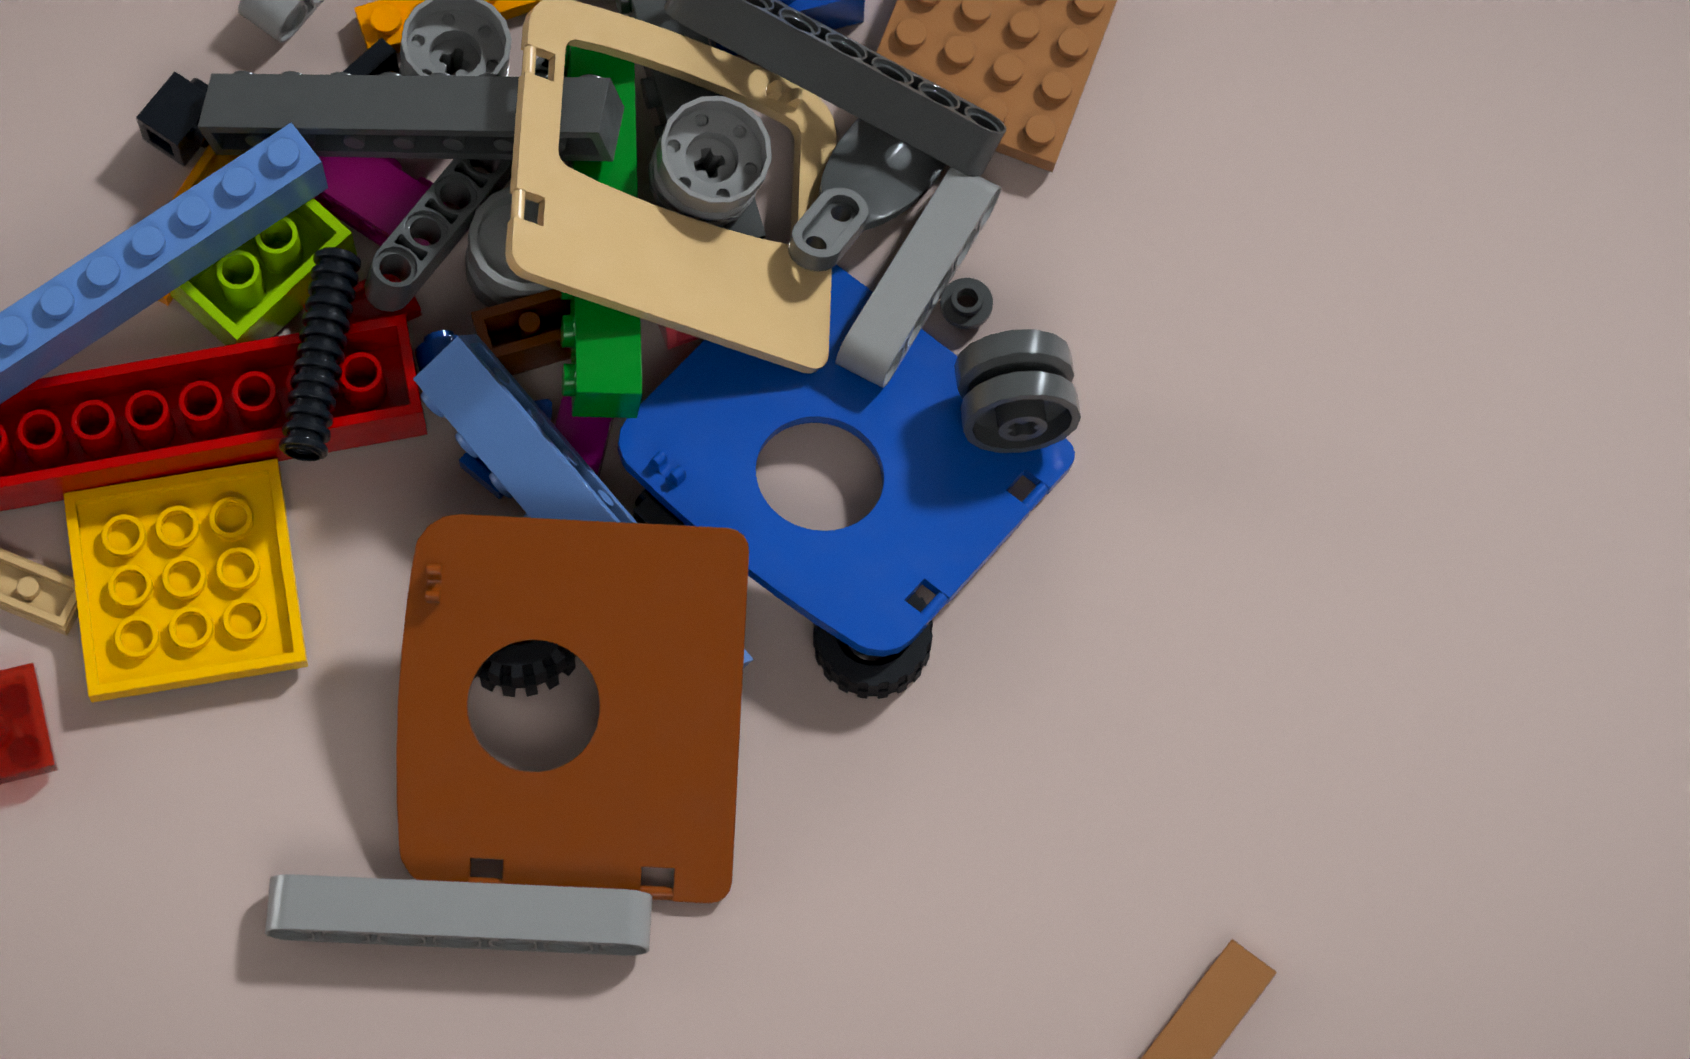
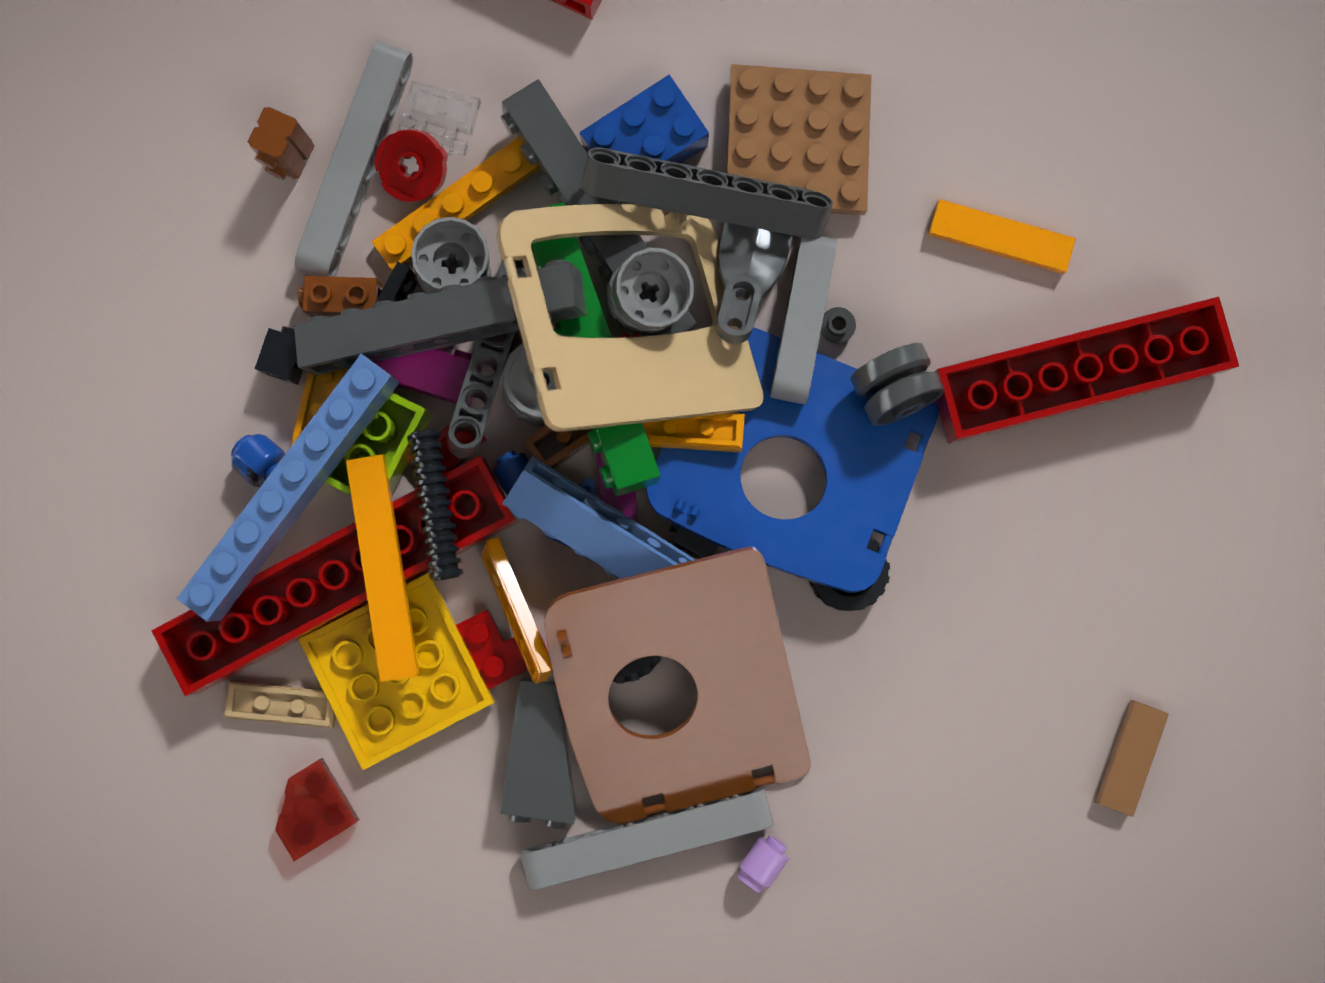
camera: 15 degrees left, 15 degrees up
(86, 230) = (255, 458): none -> blue head
(218, 419) = (382, 568): none -> light orange tile
(275, 51) = (333, 294): none -> dark orange brick
(341, 612) = (493, 656): none -> red plate
(342, 758) = (538, 760): none -> dark grey slope
(382, 540) = (516, 611): none -> light orange tile
(615, 1000) = (763, 863): none -> lavender brick
(712, 370) = (708, 433): none -> light orange tile
(1238, 255) = (1001, 236): none -> light orange tile
(1292, 458) = (1085, 369): none -> red brick

